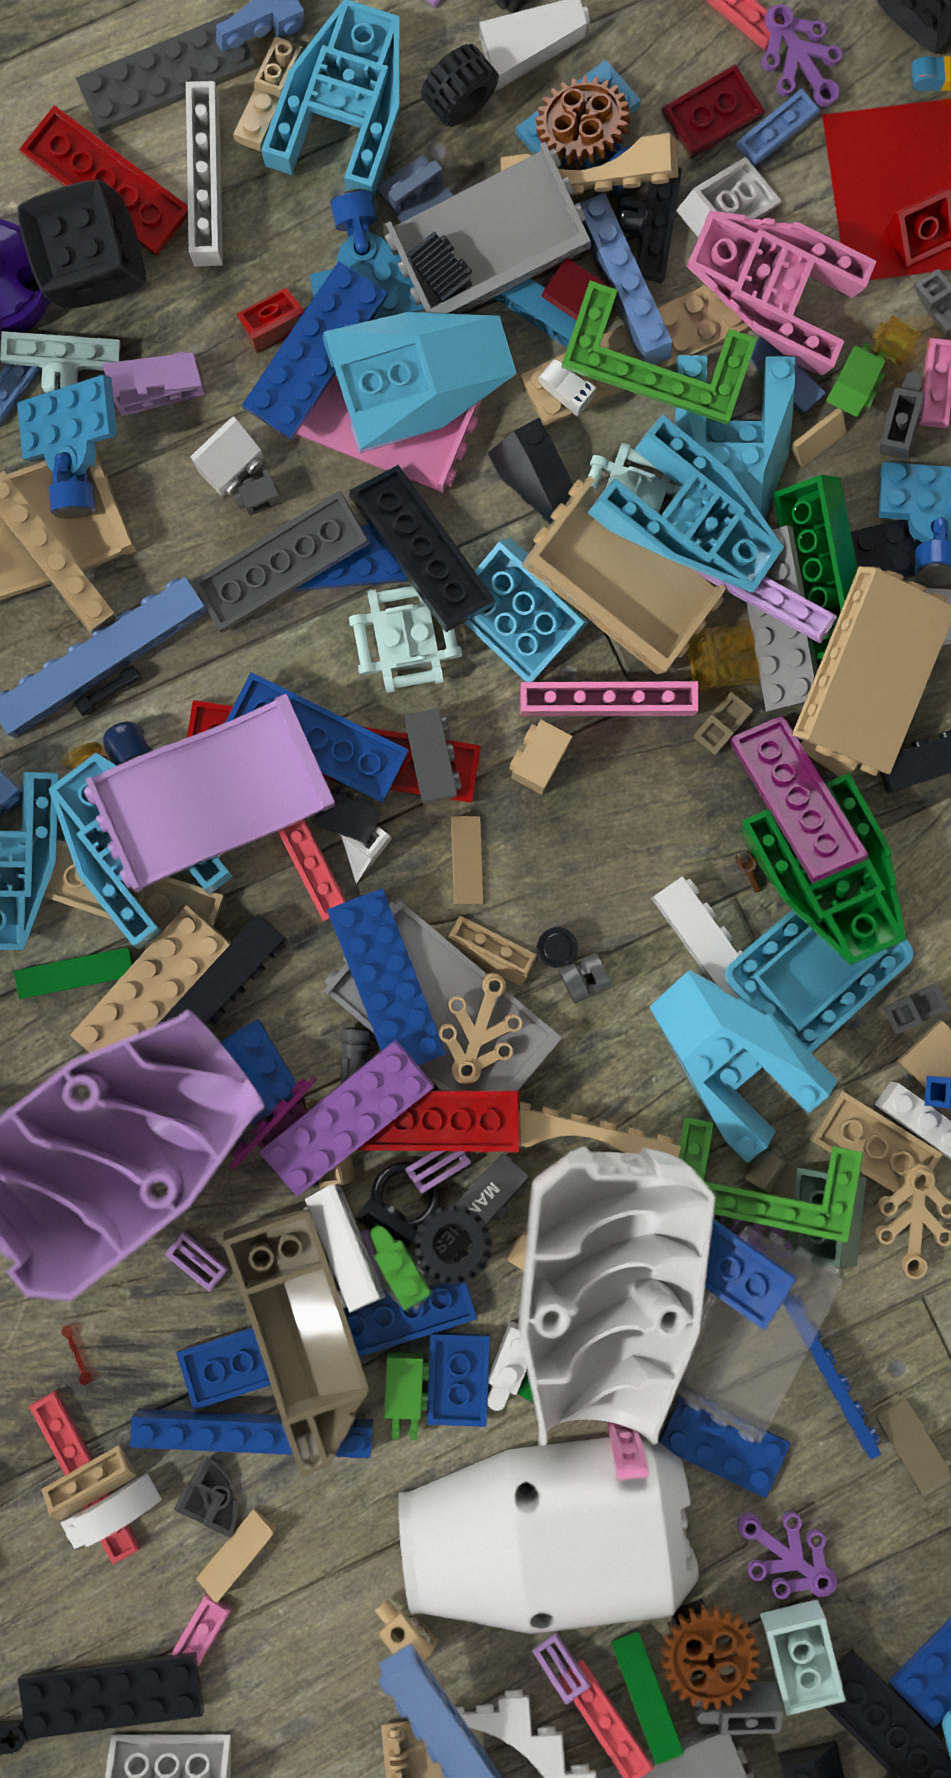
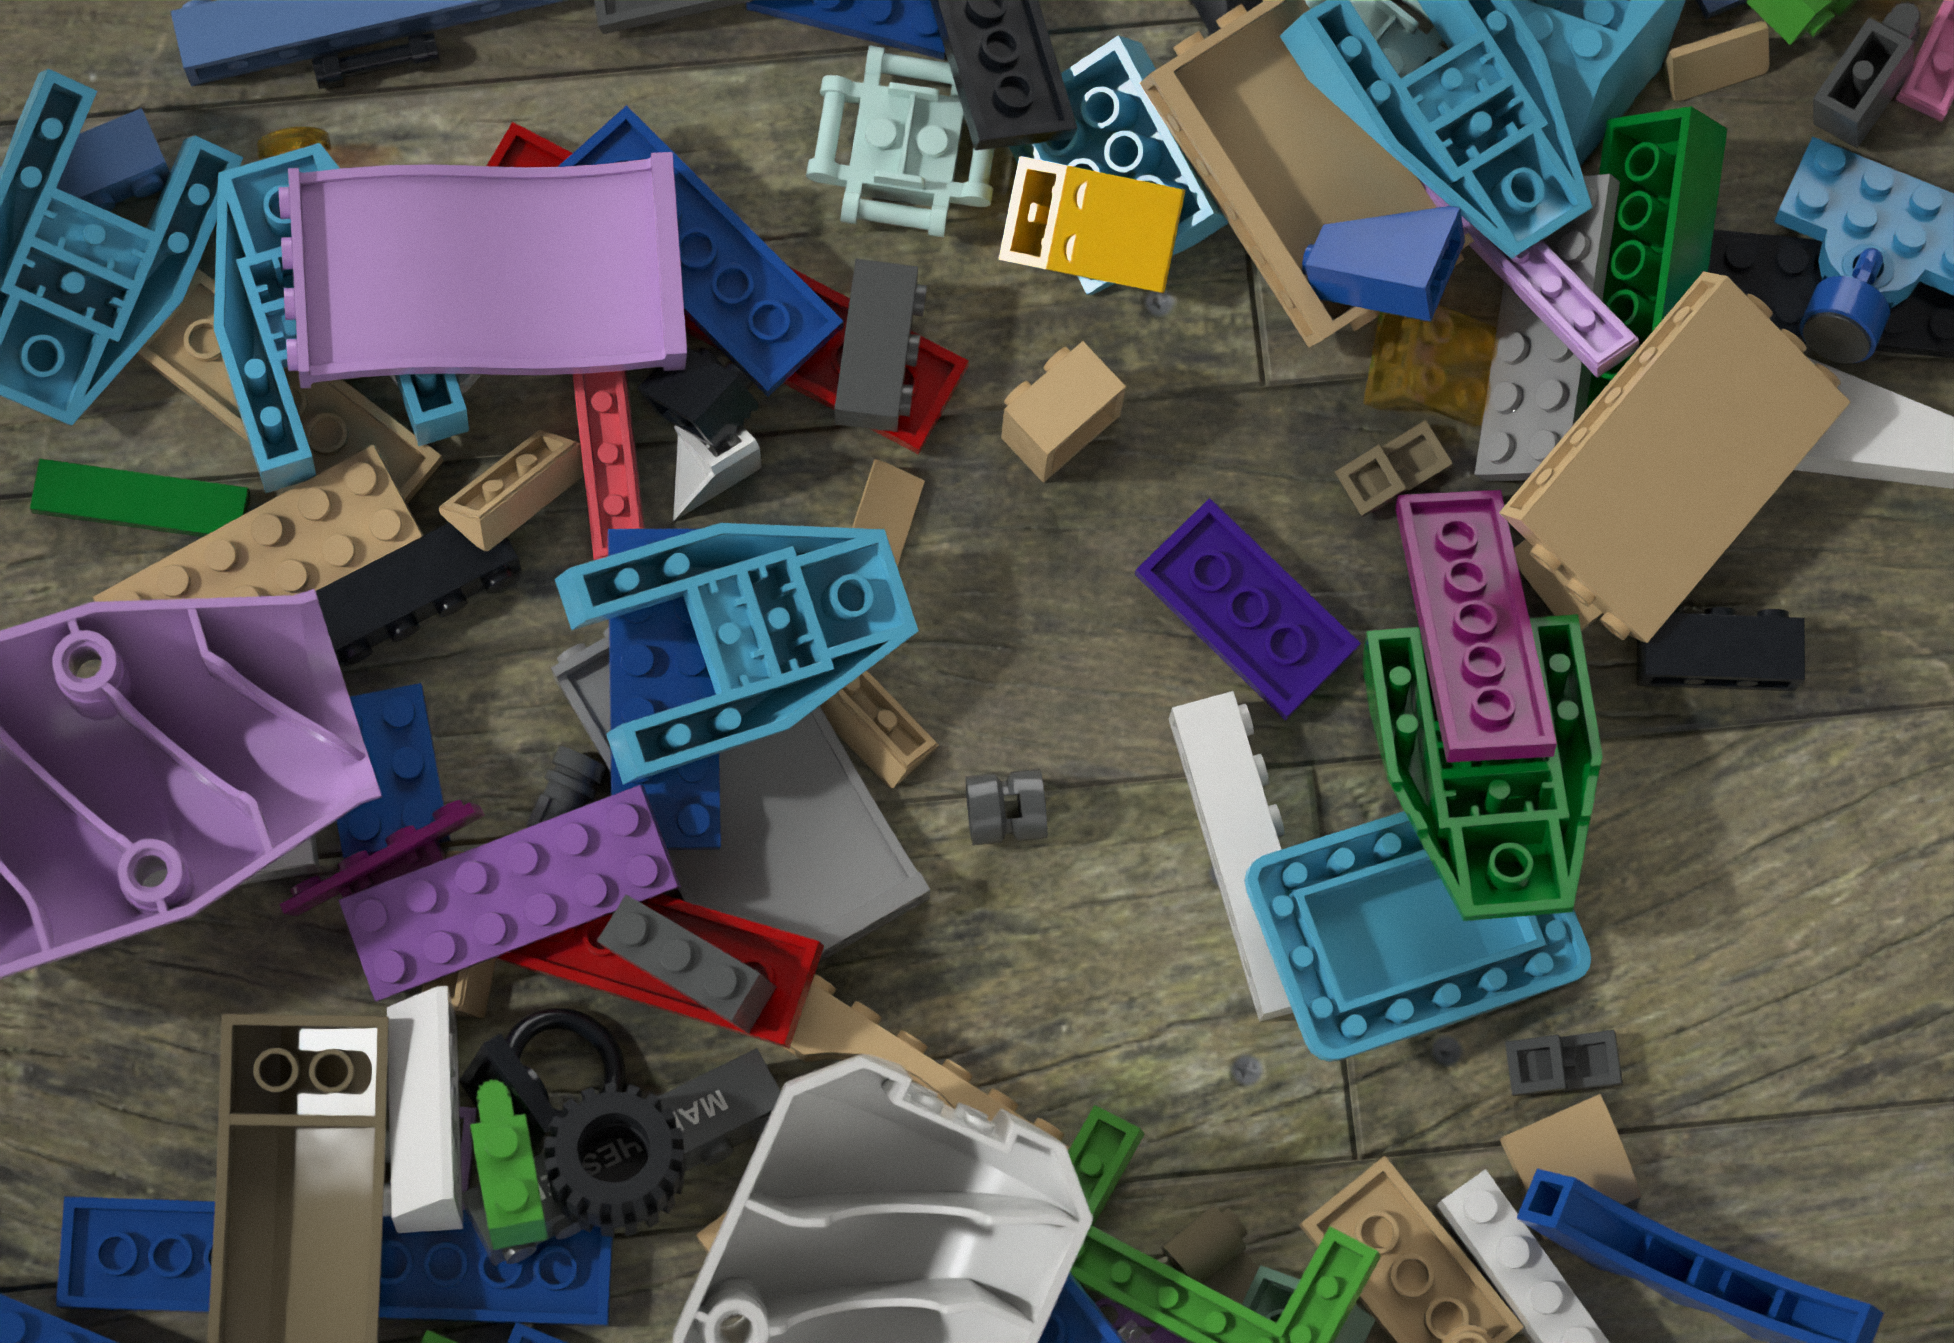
camera: 15 degrees right, 10 degrees down
(125, 742) = (372, 141): dark blue helmet -> none
(204, 1252) = (182, 1096): lavender tile -> none
(268, 901) = (514, 488): none -> tan slope
(416, 1179) = (681, 1030): lavender tile -> none
(433, 929) = (777, 618): none -> medium azure wedge
(453, 1128) = (687, 963): none -> dark grey brick
(478, 1034) = (788, 834): tan plant -> none
(521, 650) = (1092, 224): none -> yellow slope
(557, 947) = (976, 740): black wheel -> none
(608, 698) = (1211, 357): bright pink brick -> none
(672, 826) = (1247, 609): none -> dark purple plate
(686, 617) = (1387, 261): none -> slope
(726, 1043) = (1201, 994): medium azure wedge -> none
(749, 867) = (1354, 732): reddish brown hand -> none

